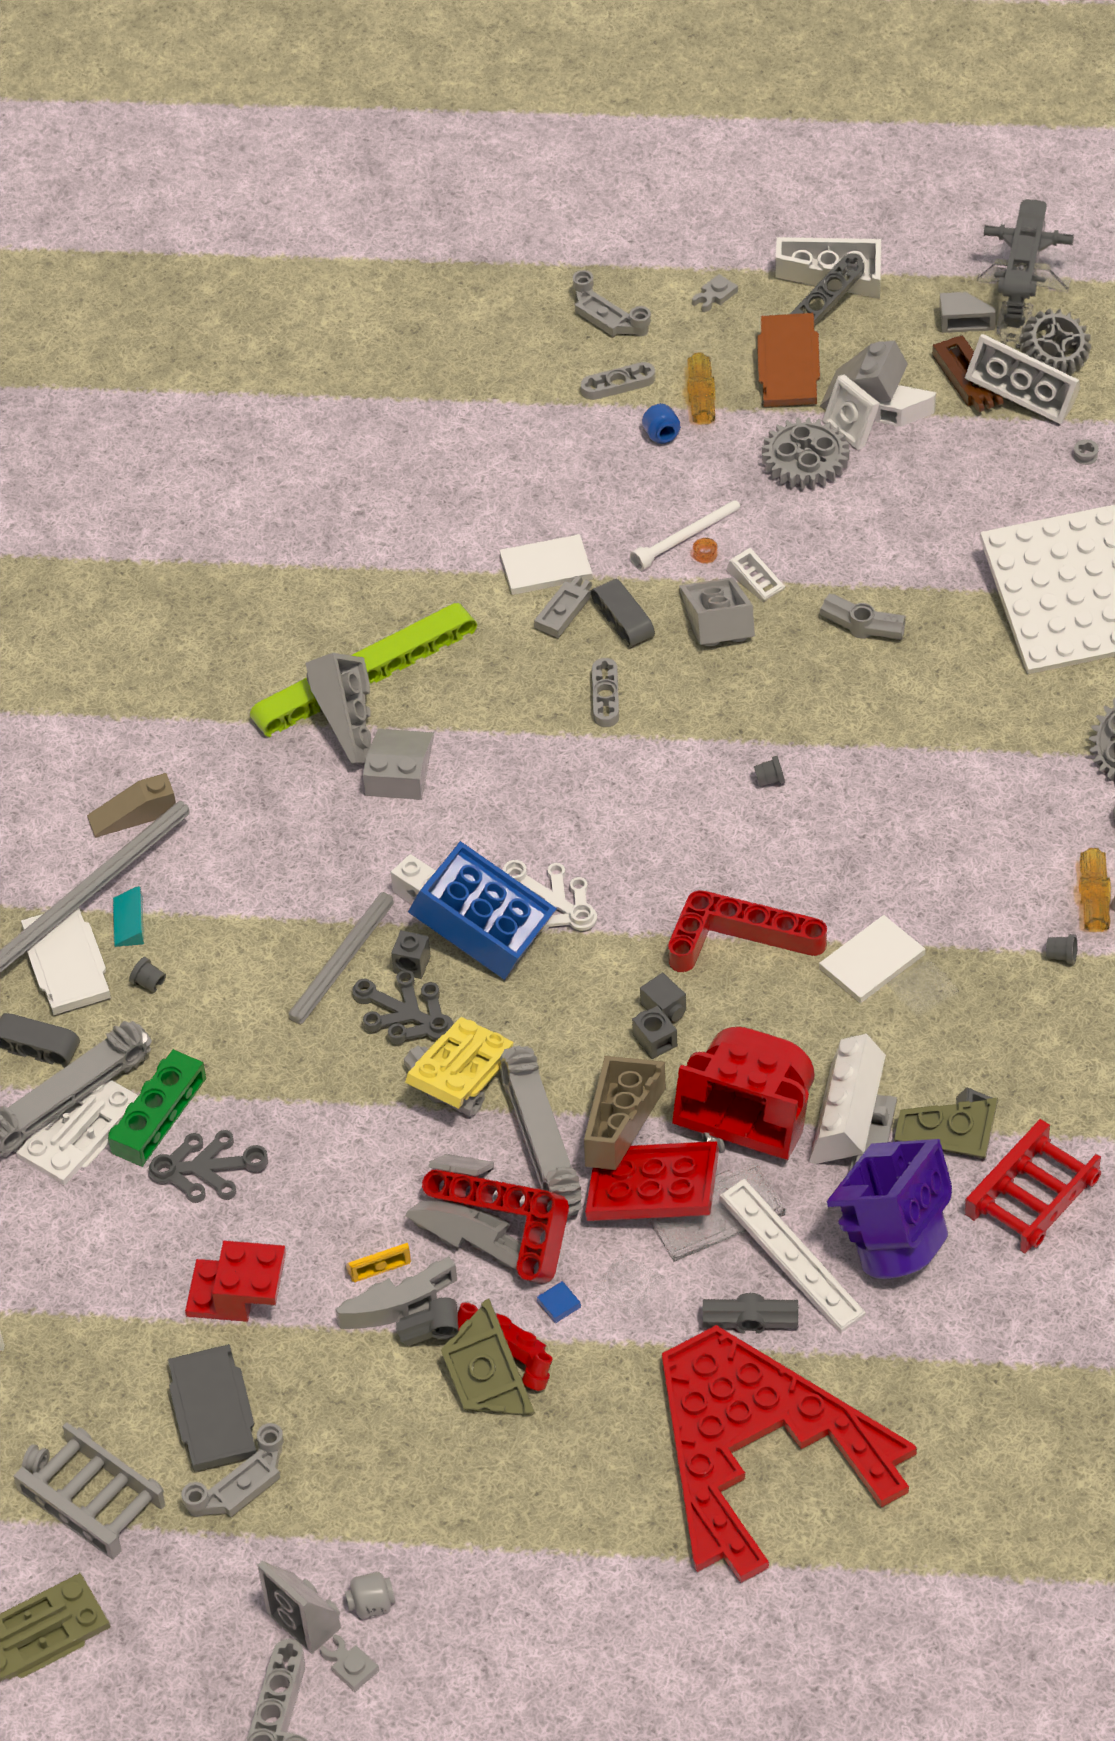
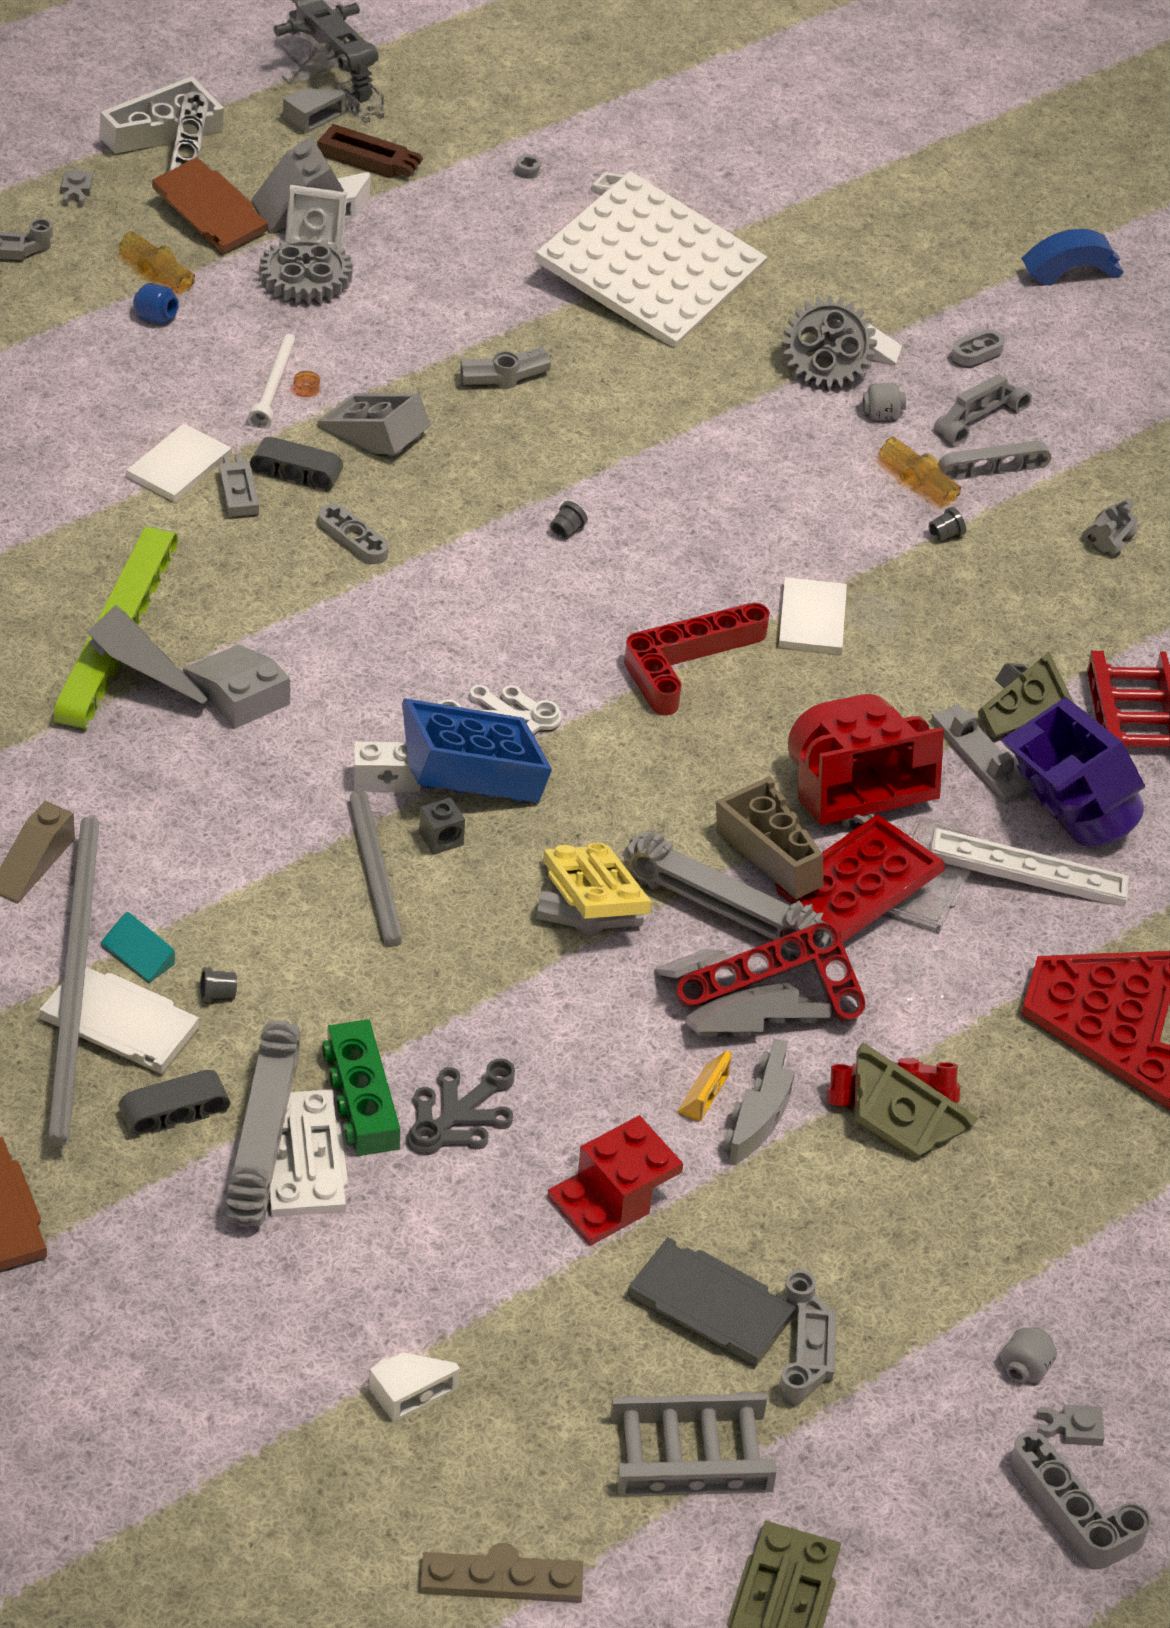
camera: 50 degrees left, 5 degrees down
(35, 1459) = (610, 1454): light grey bush -> none
(298, 1606) = (998, 1402): light grey slope -> none
(404, 1012) = (522, 872): dark grey plant -> none
(437, 1321) = (827, 1094): dark grey piece -> none
(558, 1302) = (889, 1023): blue tile -> none
(624, 373) = (76, 282): light grey beam -> none
(654, 1032) = (716, 766): dark grey brick -> none
(666, 995) = (694, 738): dark grey brick -> none
(749, 557) = (364, 378): white slope -> none
(750, 1313) = (1048, 931): dark grey piece -> none
(848, 1100) = (965, 746): white slope -> none
(1022, 379) = (431, 126): white slope -> none
(1061, 335) = (418, 95): light grey gear -> none

